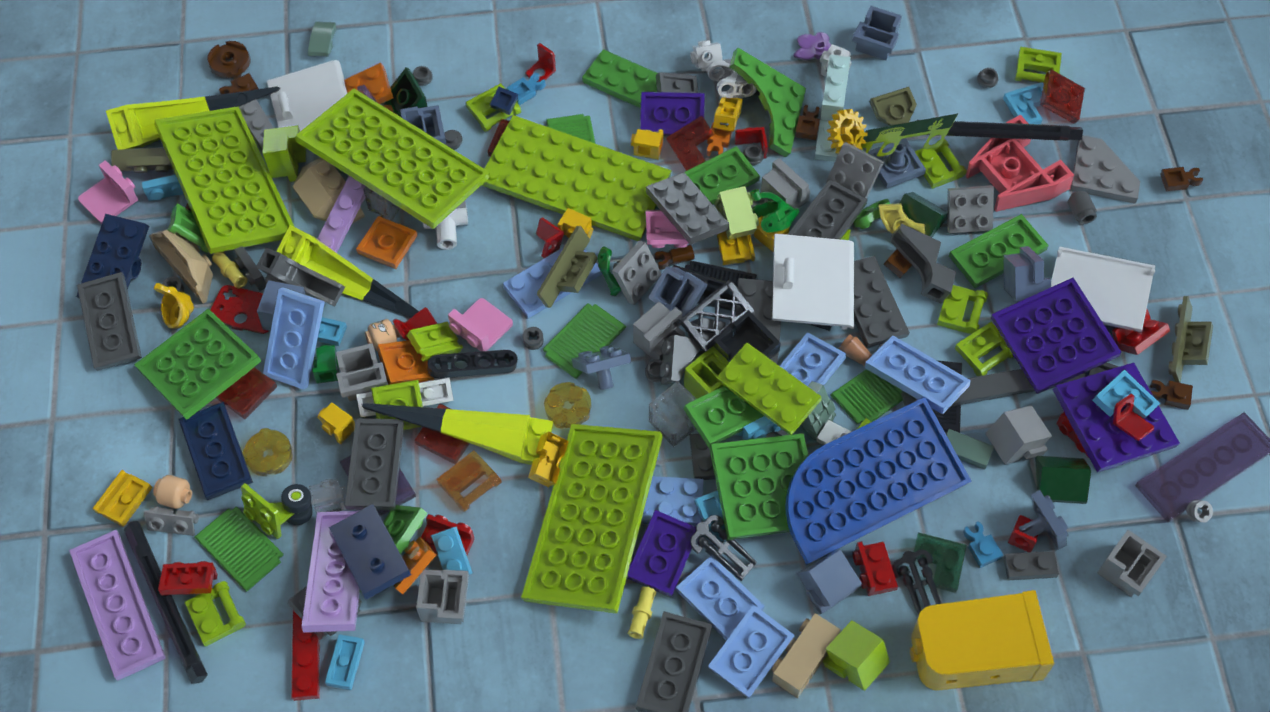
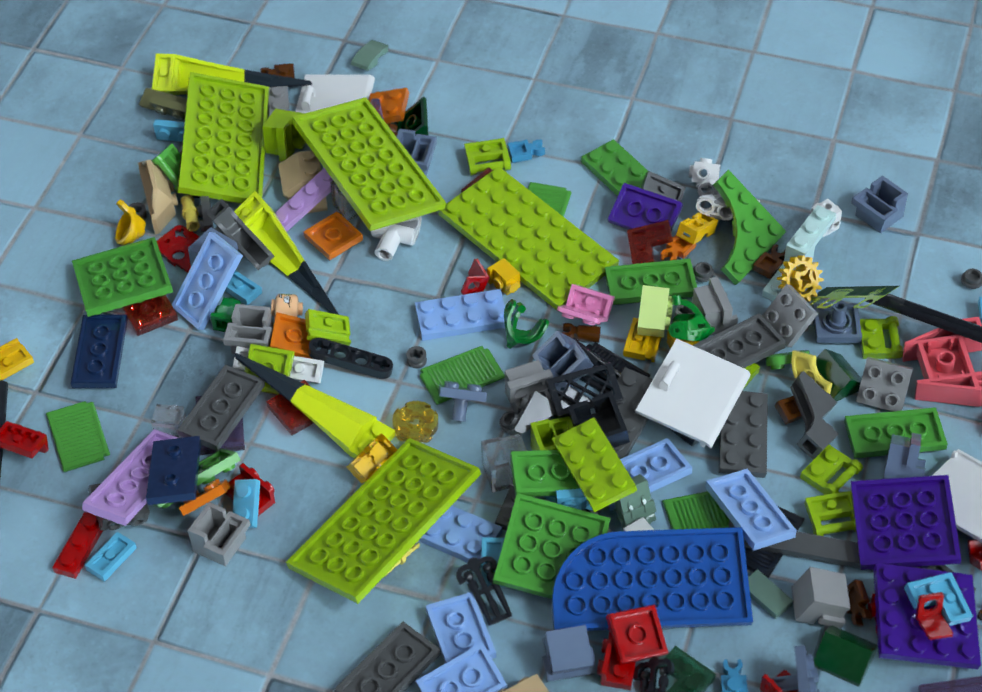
camera: 25 degrees right, 10 degrees down
(109, 195) = (125, 123): bright pink bracket -> none
(109, 321) = (69, 219): dark grey plate -> none
(116, 249) = (99, 174): dark blue plate -> none
(166, 521) = (33, 393): light grey hinge -> none
(172, 491) = (47, 370): light nougat head -> none
(207, 618) = (21, 478): lime plate -> none
(231, 69) = (289, 51): reddish brown plate -> none
(266, 440) = (141, 358): clear yellow plate -> none
(293, 508) = (135, 416): lime plate -> none
(336, 422) = (208, 363): yellow brick -> none
(421, 319) = (328, 306): red bracket -> none
(422, 75) = (439, 111): dark grey plate -> none
(453, 139) = (436, 172): dark grey plate -> none
(465, 474) = (292, 446): clear orange plate -> none
(480, 325) = (376, 329): bright pink bracket -> none
(504, 100) = (497, 152): dark blue plate -> none
(545, 61) = (554, 135): red bracket -> none
(569, 269) = (475, 307): olive bracket -> none
(636, 272) = (533, 330): light grey plate -> none
(641, 612) = (384, 616): light yellow pin -> none
(647, 143) = (609, 230): yellow brick -> none
(662, 553) = (428, 573): dark purple plate -> none
(687, 208) = (610, 292): dark grey plate -> none
(752, 135) = (710, 255): red bracket -> none
(812, 46) = (812, 195): medium lavender plate -> none
(855, 350) = (704, 467): nougat cone -> none
(883, 537) = (637, 634): none -> red plate
(894, 107) = (862, 272): olive plate -> none
(1052, 422) = (858, 599): none -> reddish brown plate

